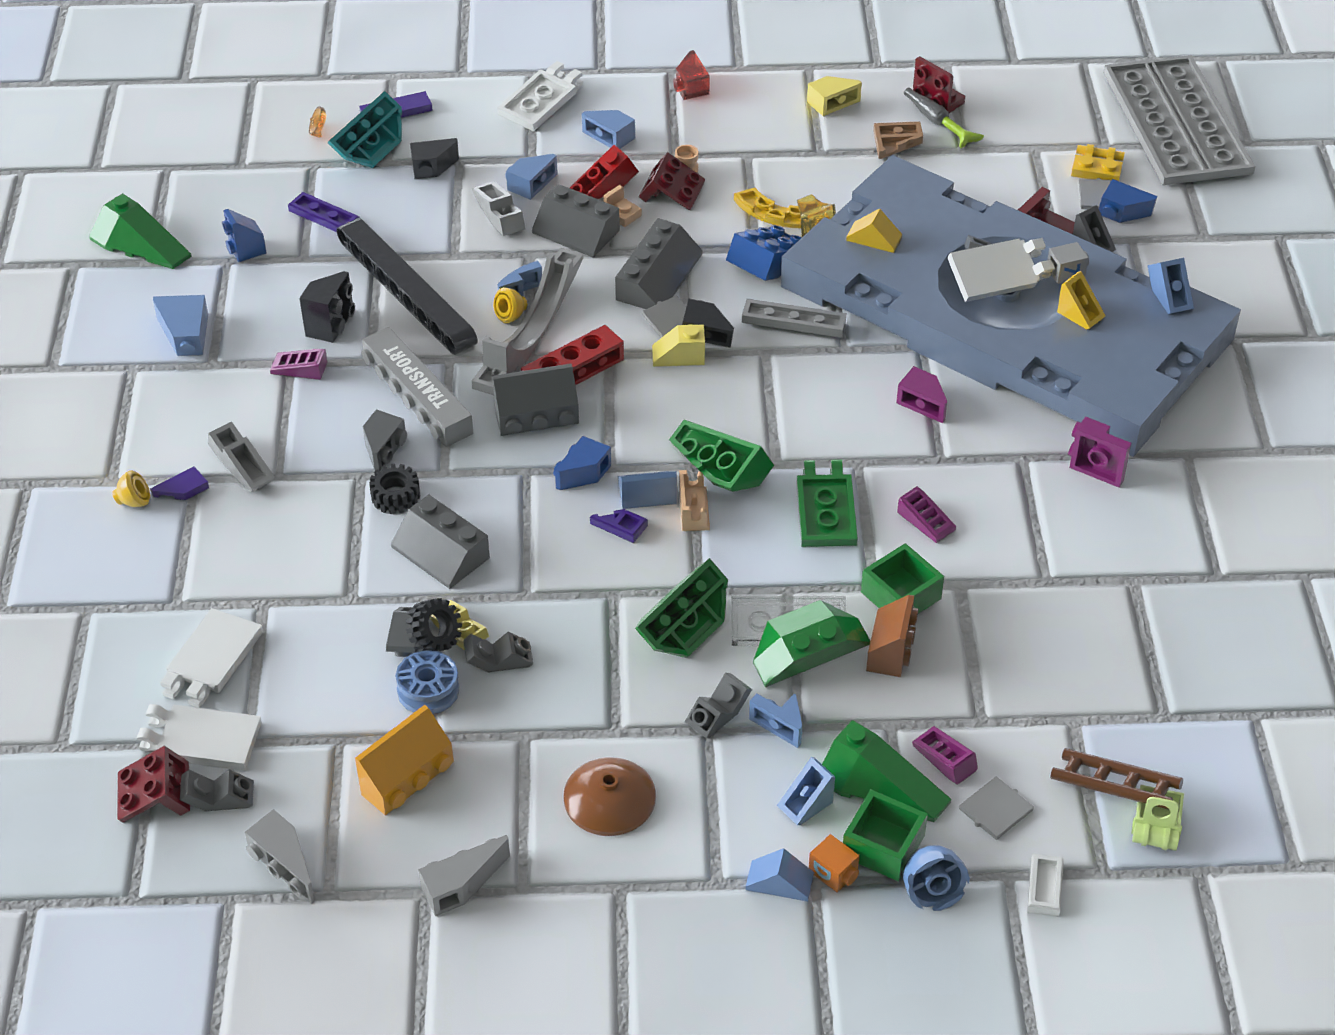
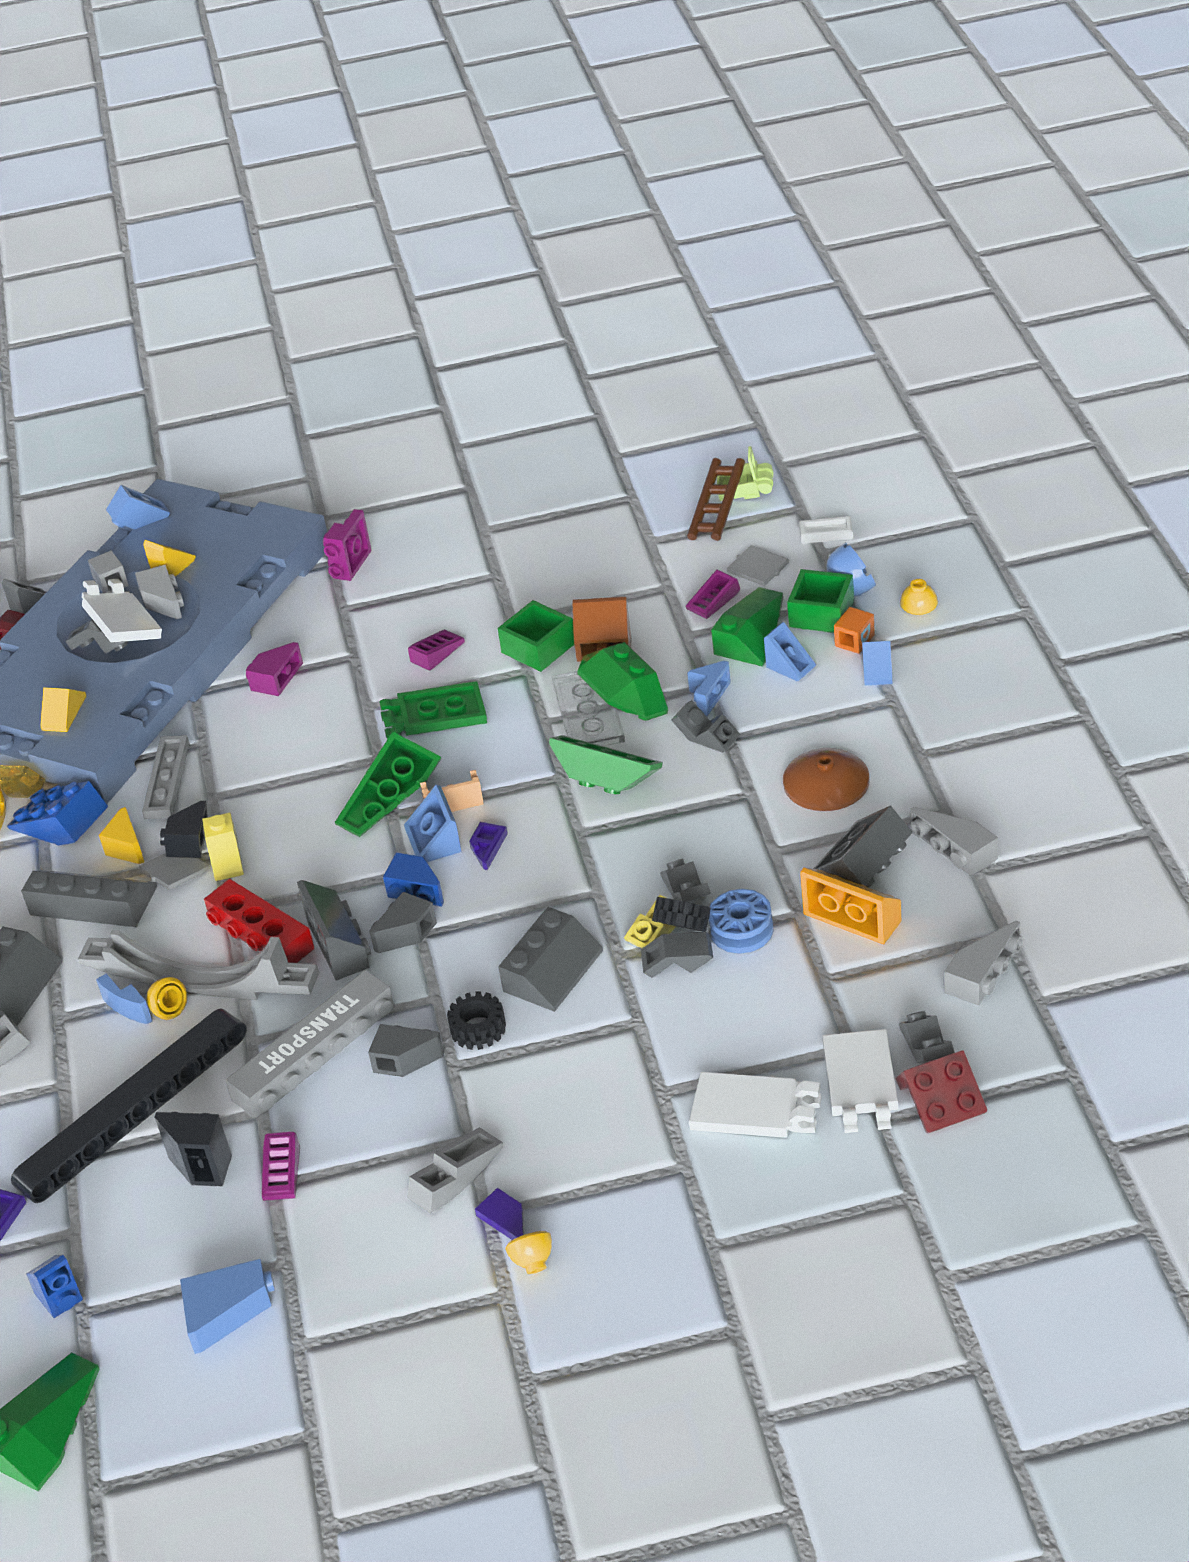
camera: 95 degrees left, 5 degrees down
(476, 792) = (867, 847): none -> dark grey slope
(533, 453) = (403, 923): none -> dark grey slope
(720, 287) = (120, 839): none -> yellow slope
(880, 944) = (918, 598): none -> yellow brick
(1029, 298) = (158, 591): none -> light grey slope

